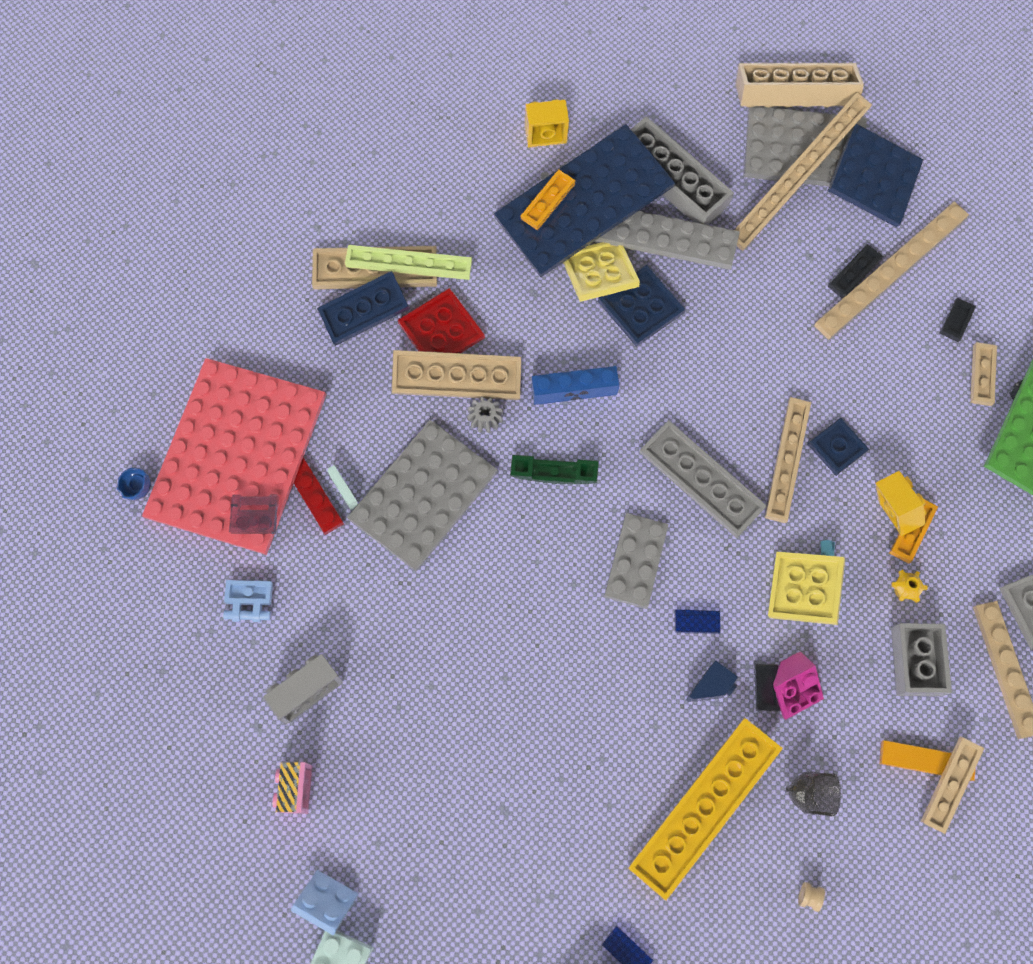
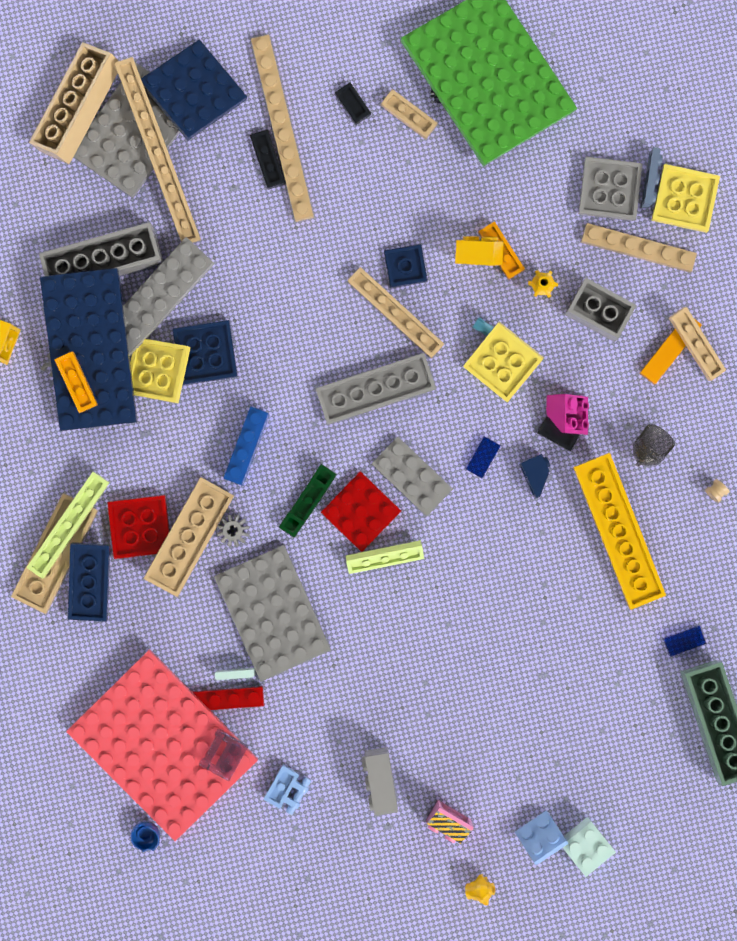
camera: 60 degrees left, 15 degrees up
(234, 864) = (480, 890): none -> yellow rock
(539, 574) = (384, 557): none -> yellowish green plate
(572, 528) = (361, 511): none -> red plate

